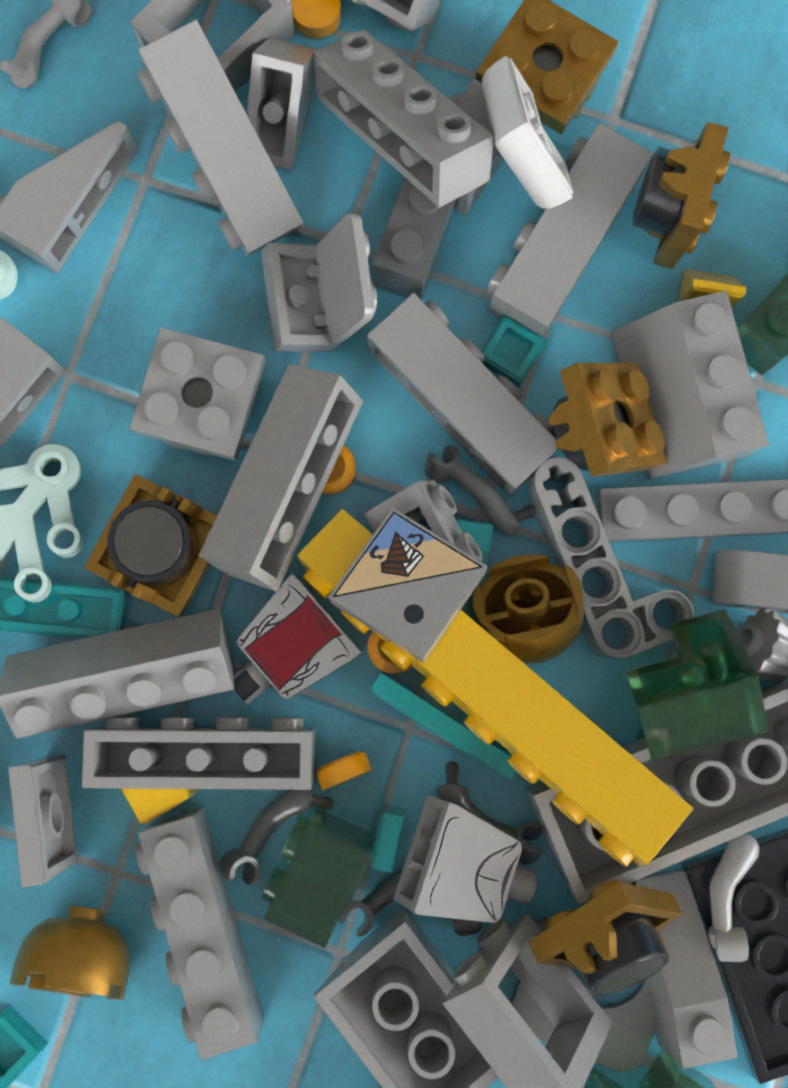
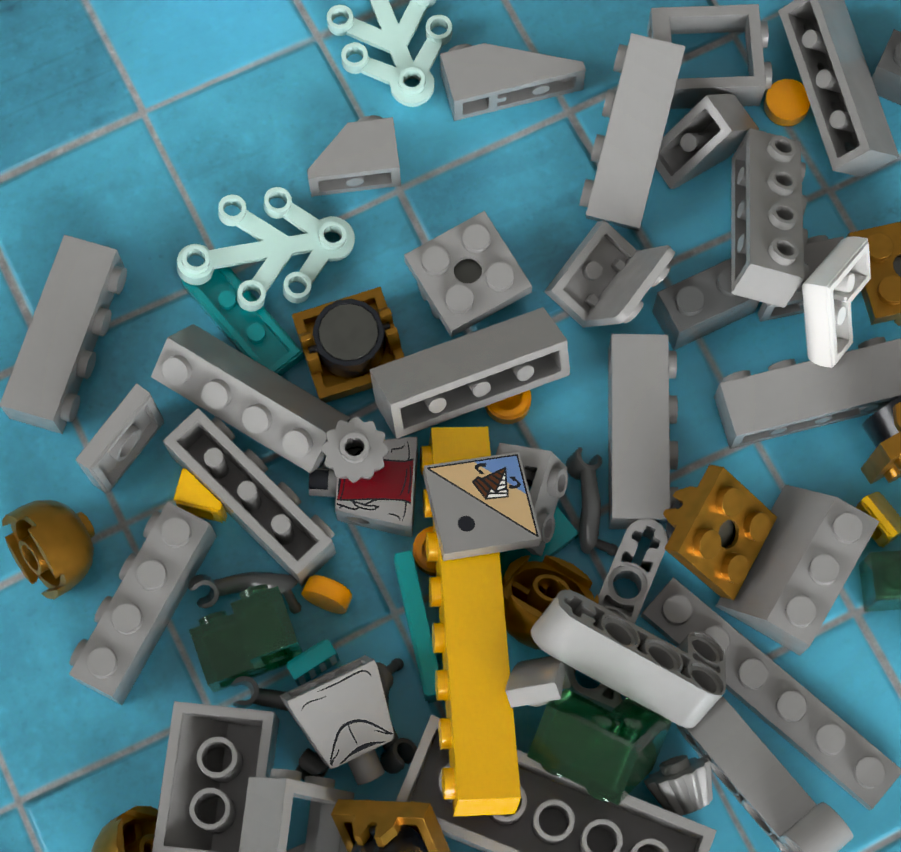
camera: 50 degrees right, 10 degrees down
(277, 645) = (355, 434): none -> light grey piece
(512, 350) = (703, 435): teal tile -> none
(600, 685) = (538, 681): none -> light grey slope
(693, 581) = (666, 679): none -> light grey beam

